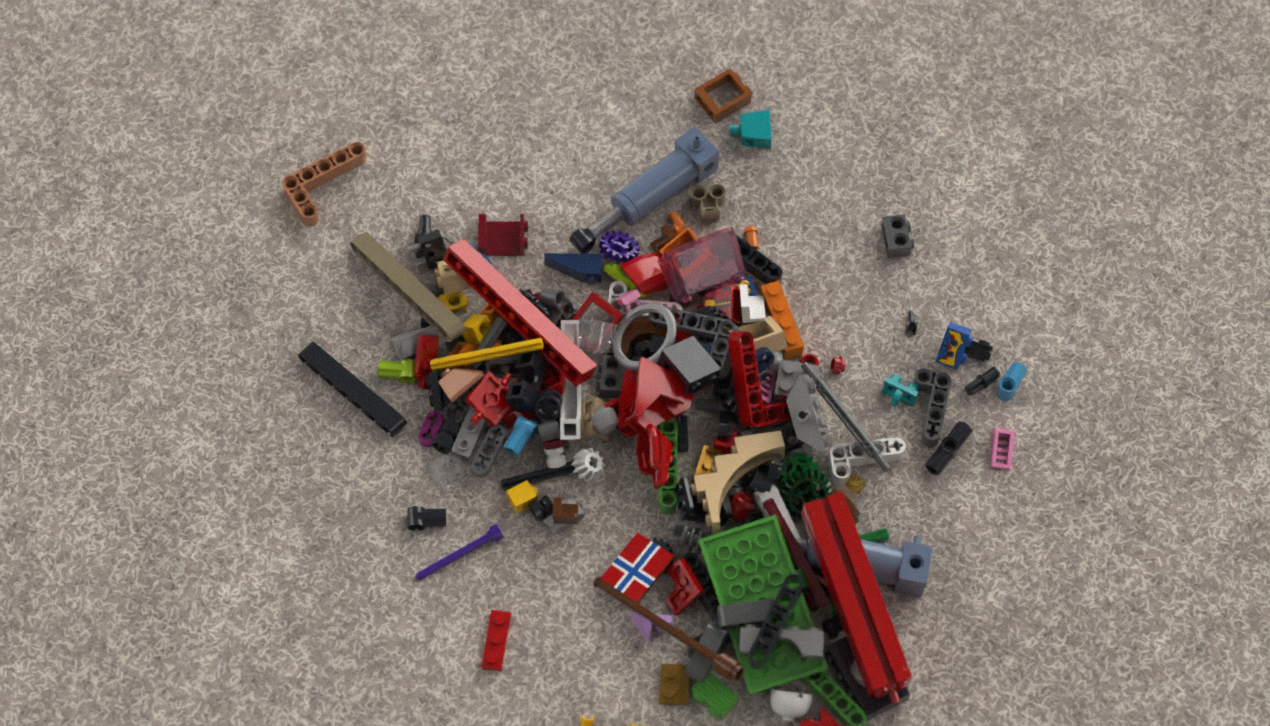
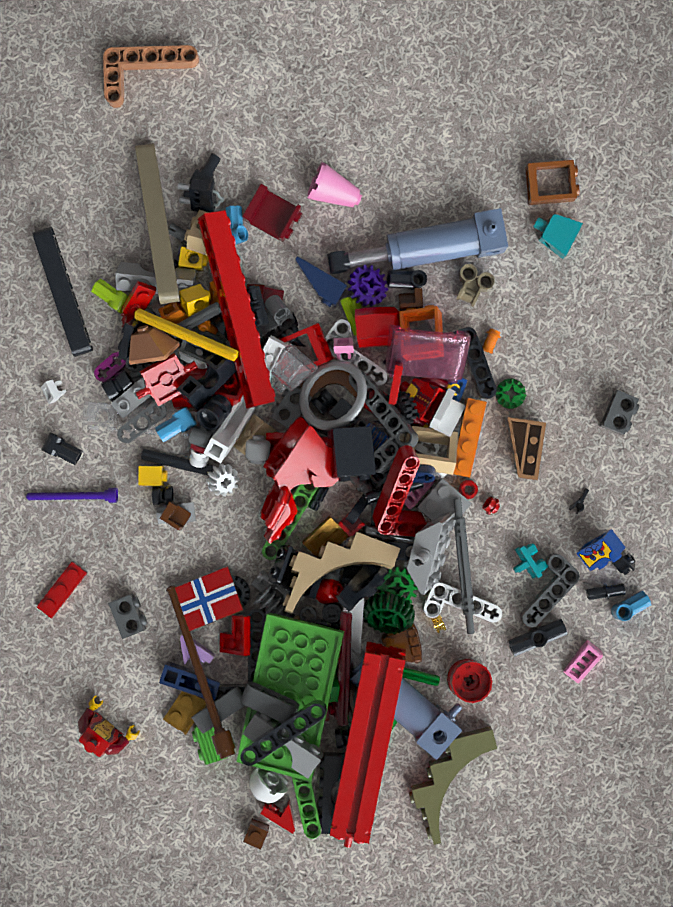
camera: 25 degrees right, 25 degrees up
(389, 474) = (51, 392): none -> white tile
(542, 188) = (333, 188): none -> bright pink cone
(567, 630) = (122, 617): none -> dark grey brick
(649, 225) = (404, 279): none -> black piece
(659, 650) = (186, 680): none -> dark blue slope
(678, 223) = (435, 289): orange arm -> none
(692, 294) = (396, 383): none -> red tile
(793, 277) = (504, 400): none -> green gear
(836, 299) = (527, 444): none -> medium nougat wedge
(912, 511) = (476, 689): none -> red wheel
(940, 606) = (431, 793): none -> olive arch

